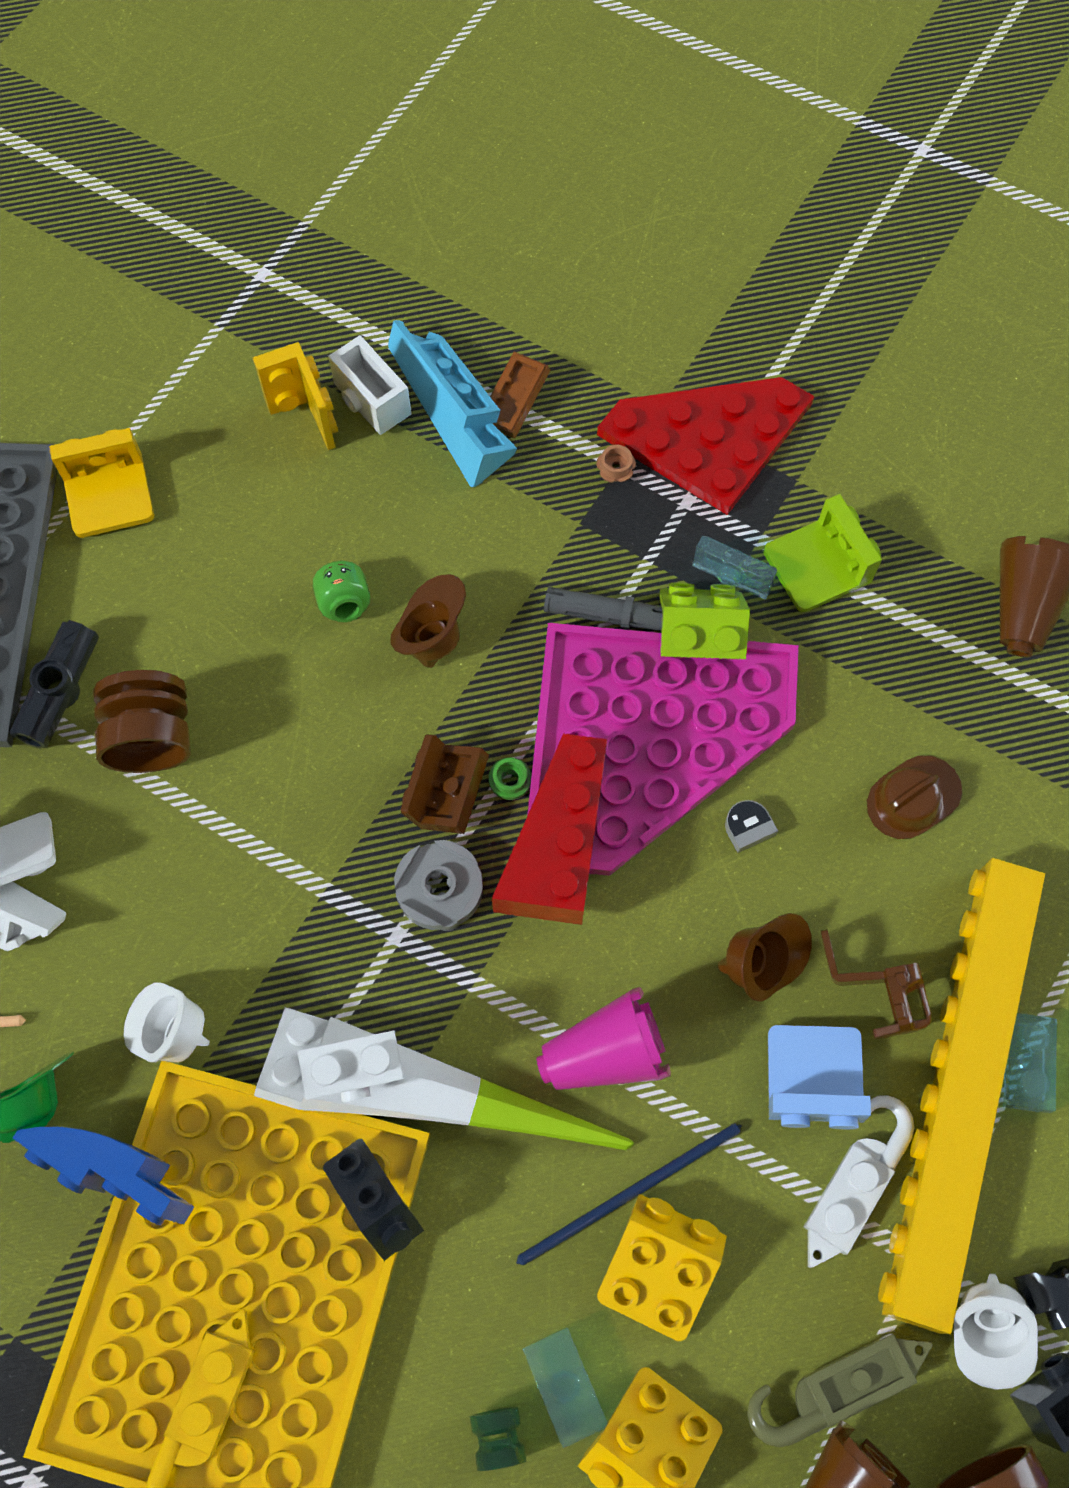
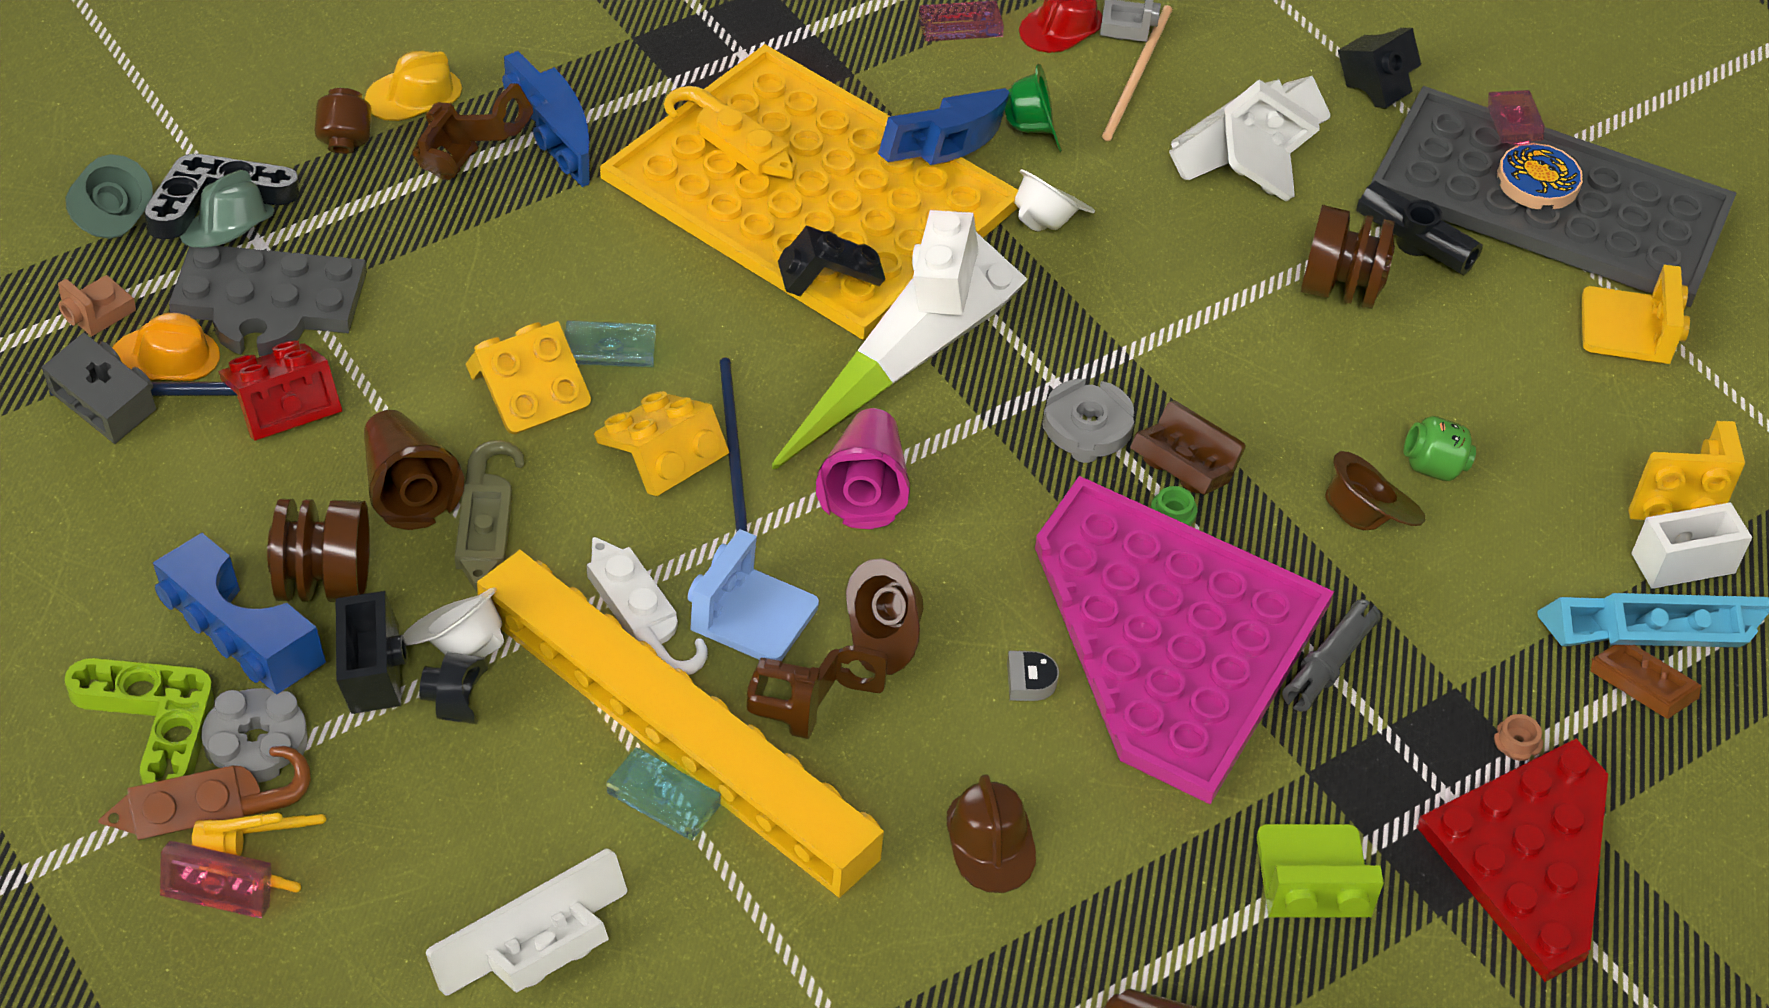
camera: 110 degrees right, 20 degrees down
(497, 1451) = (600, 288): clear green wheel -> none
(555, 847) = (1089, 491): red wedge -> none
(704, 622) = (1287, 705): lime bracket -> none
(734, 567) = (1337, 781): clear light blue plate -> none

